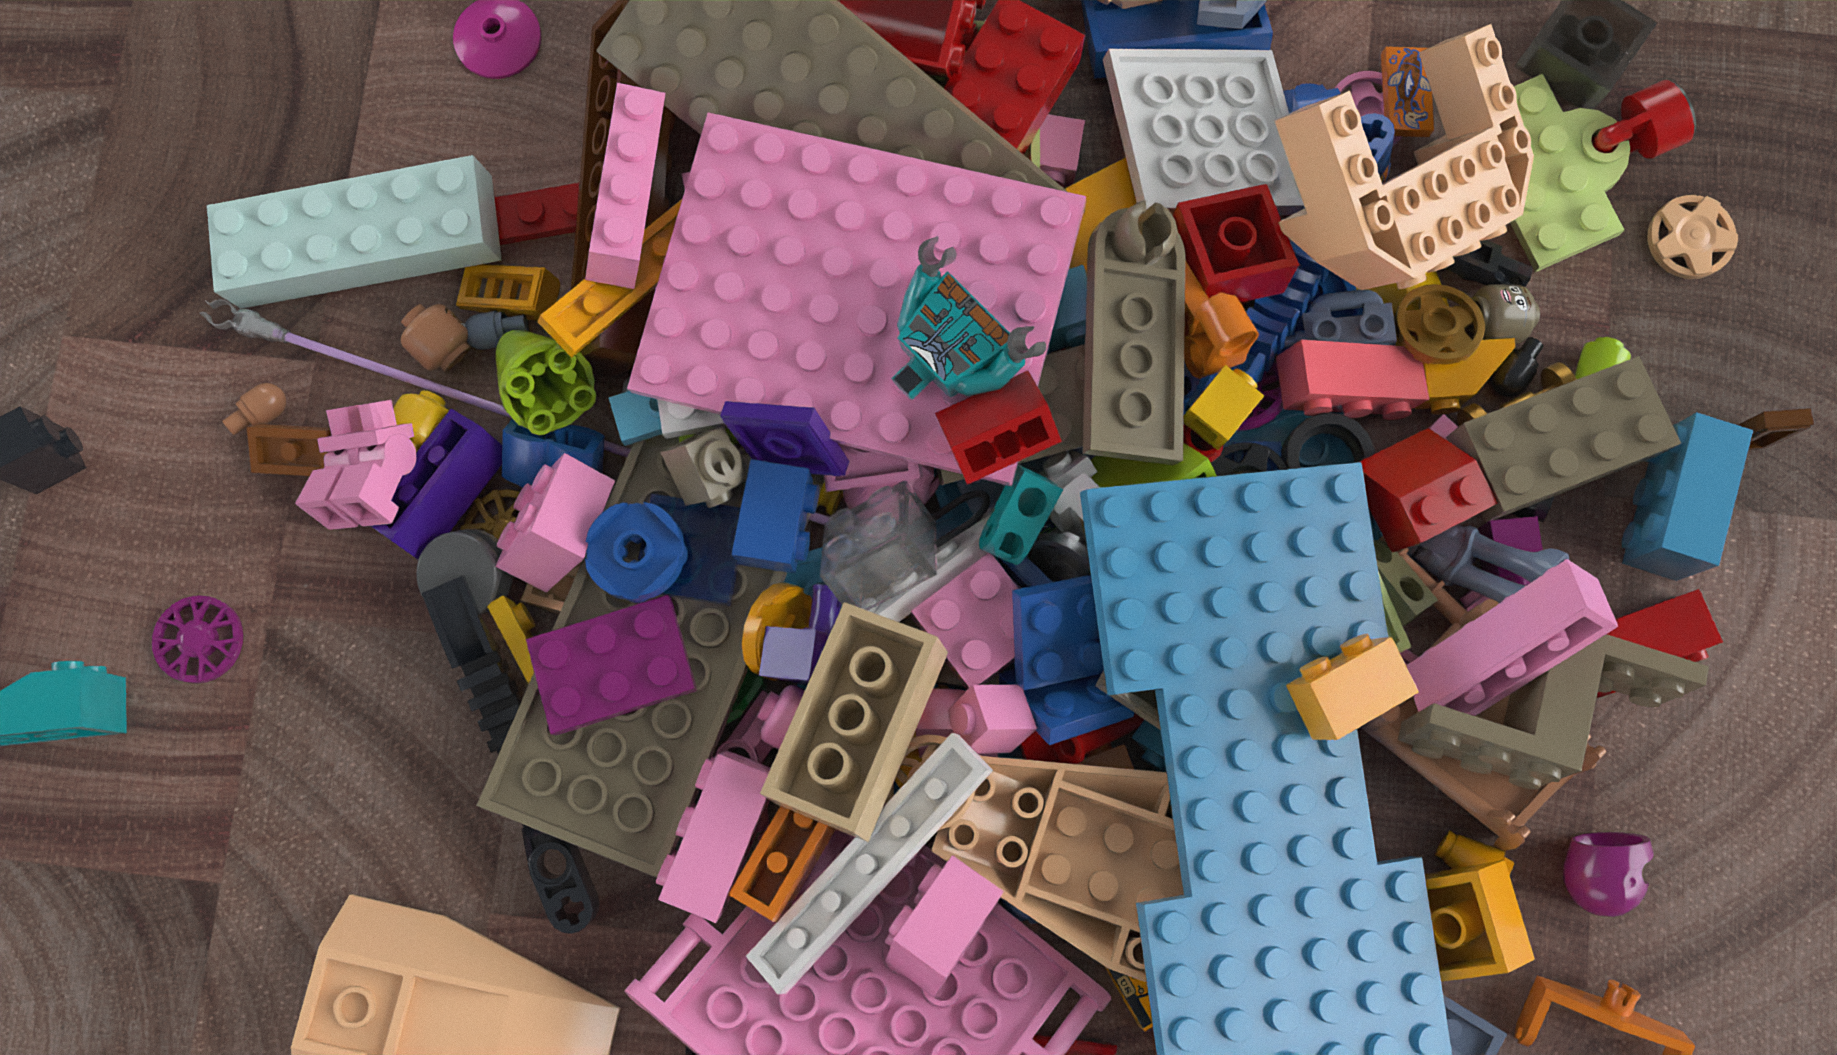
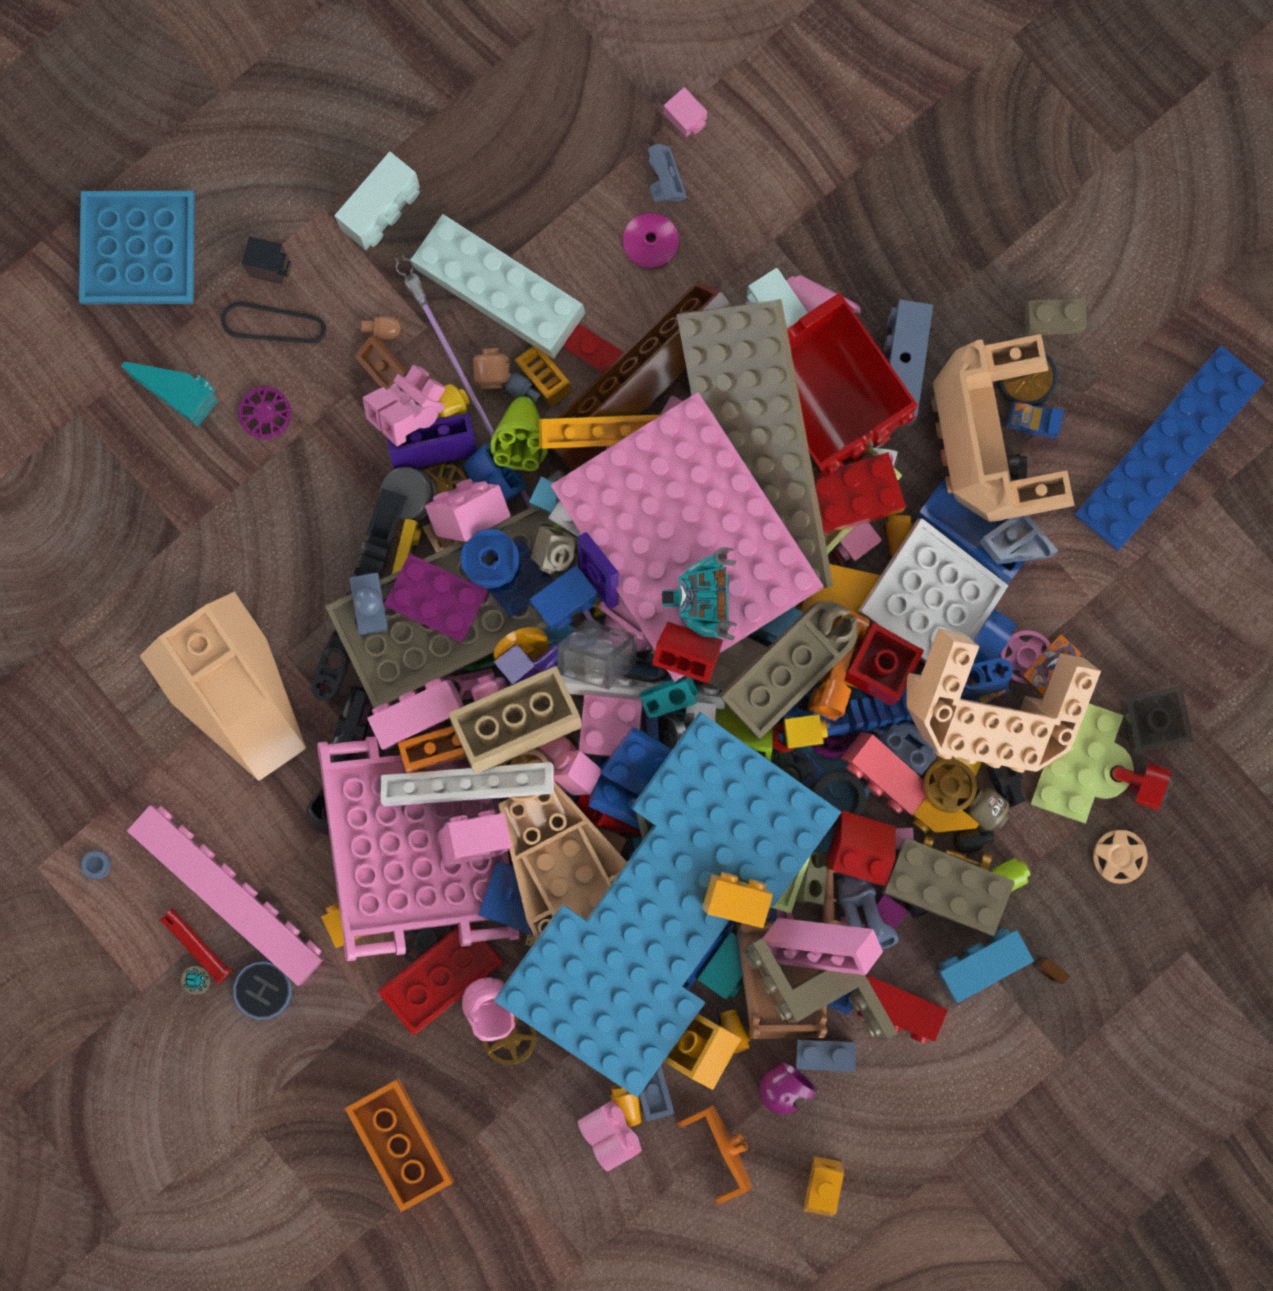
camera: 40 degrees right, 5 degrees up
(53, 535) = (274, 338): none -> black piece
(112, 260) = (378, 201): none -> light aqua brick
(530, 750) = (368, 604): none -> sand blue tile
(625, 186) = (632, 391): bright pink brick -> none
(649, 923) = (353, 722): none -> black piece
(1049, 967) = (503, 899): none -> blue piece
(1091, 102) = (897, 529): none -> light orange cone
(1394, 792) = (724, 969): none -> teal brick
(1618, 781) = (825, 1055): none -> sand blue brick
(1776, 951) = (824, 1186): none -> light orange torso

